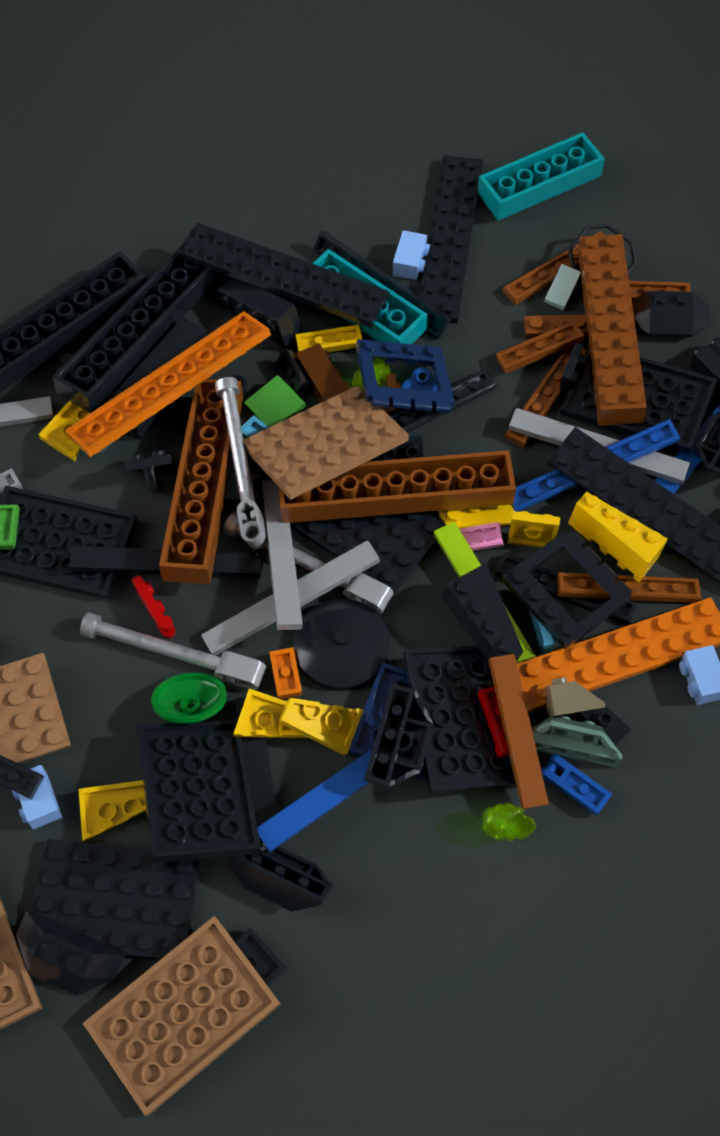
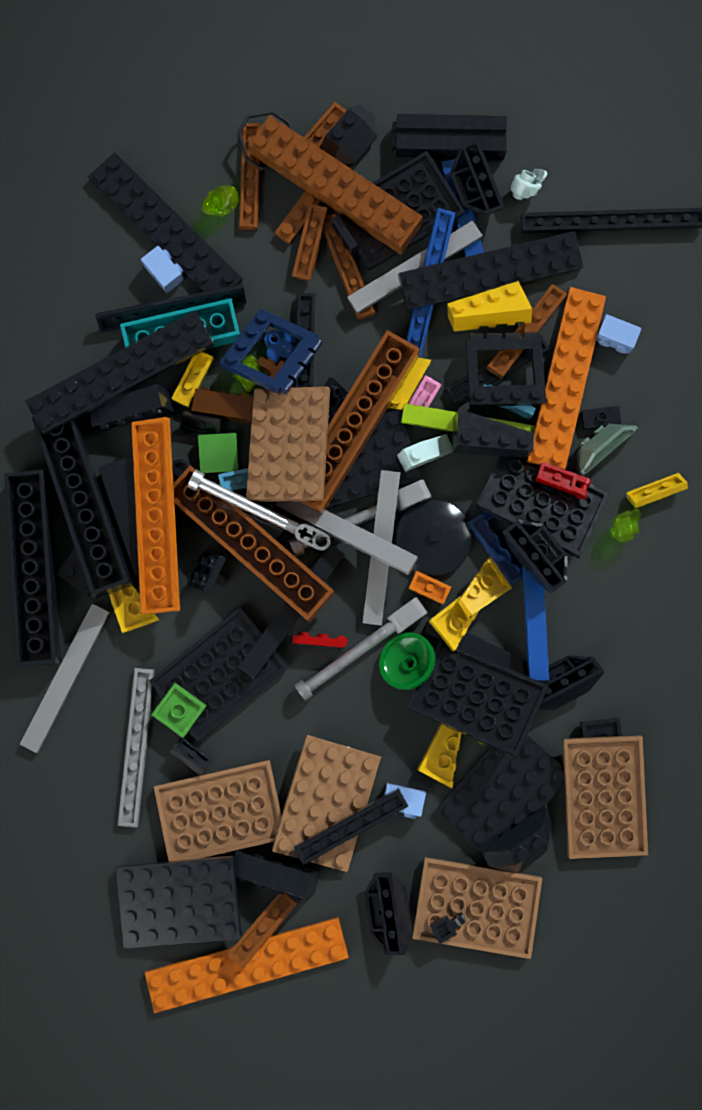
camera: 60 degrees left, 20 degrees up
(419, 571) = (424, 452): none -> light aqua slope
(513, 256) = (220, 201): none -> clear neon green head
(518, 731) = (580, 476): dark orange tile -> none
(532, 529) = (445, 361): yellow plate -> none
(540, 176) = (165, 125): teal brick -> none
(562, 287) = (271, 187): light aqua tile -> none
(569, 697) = (587, 430): dark tan slope -> none
(574, 832) = (657, 490): none -> yellow plate
(576, 784) = (629, 466): blue plate -> none

